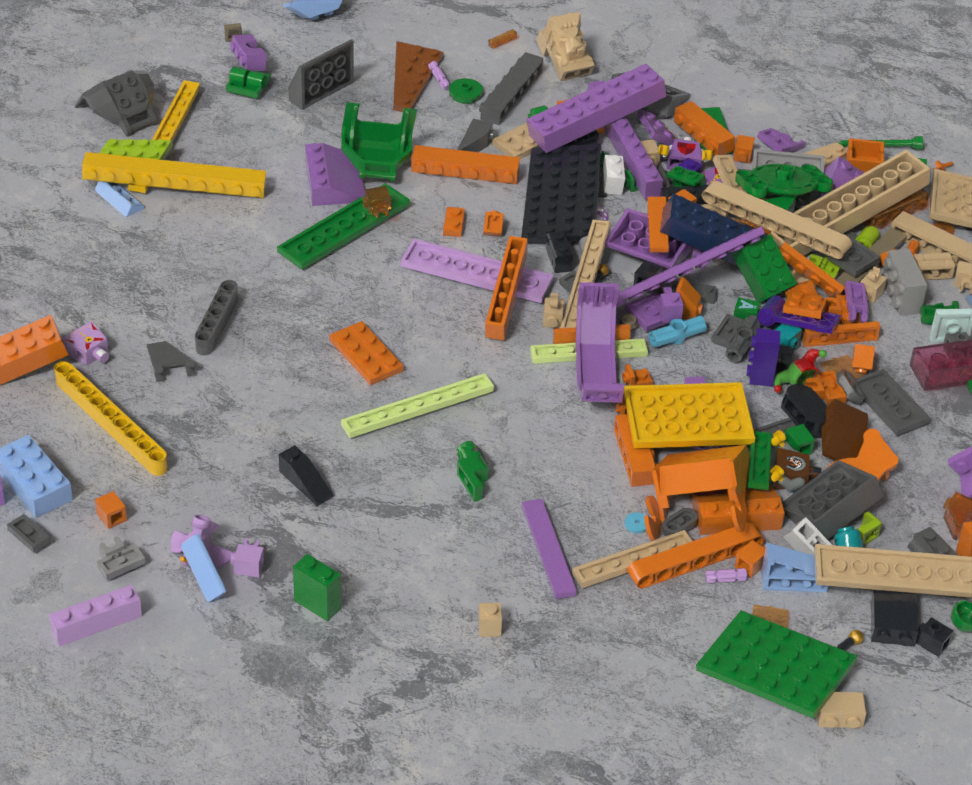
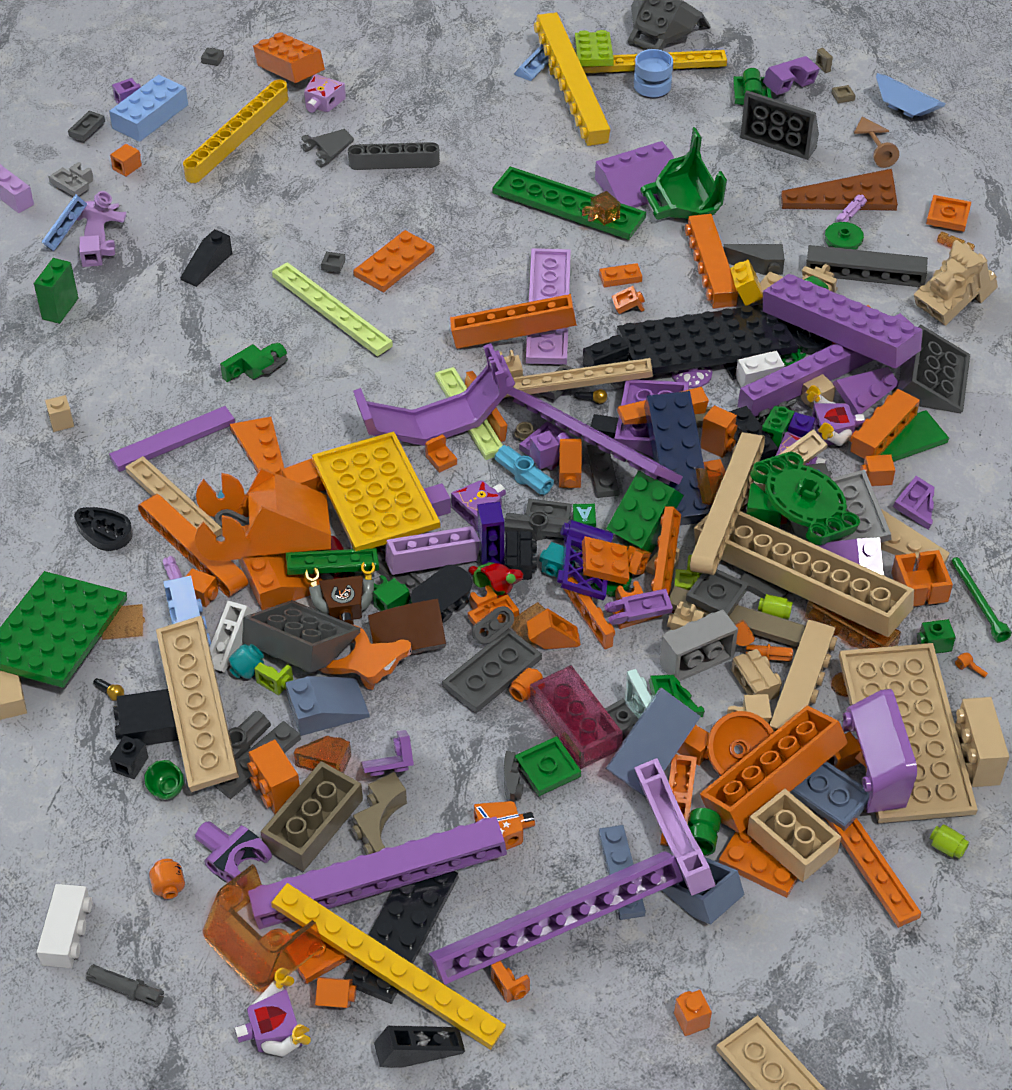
camera: 75 degrees right, 5 degrees up
(200, 125) = (653, 73): none -> light blue wheel
(280, 38) = (843, 94): none -> dark tan tile
(336, 37) = (886, 153): none -> medium nougat piece
(352, 390) = (333, 262): none -> dark grey plate
(467, 30) = (948, 213): none -> orange plate
(512, 147) = (746, 282): none -> yellow brick
(515, 114) = (823, 274): none -> tan hips
(579, 488) = (259, 443): none -> orange wing
(650, 625) = (100, 518): none -> black piece
(708, 364) = (465, 500): none -> medium lavender torso
(762, 399) = (432, 550): none -> lavender brick
(903, 508) = (325, 702): none -> sand blue slope
(911, 385) = (521, 685): none -> orange brick

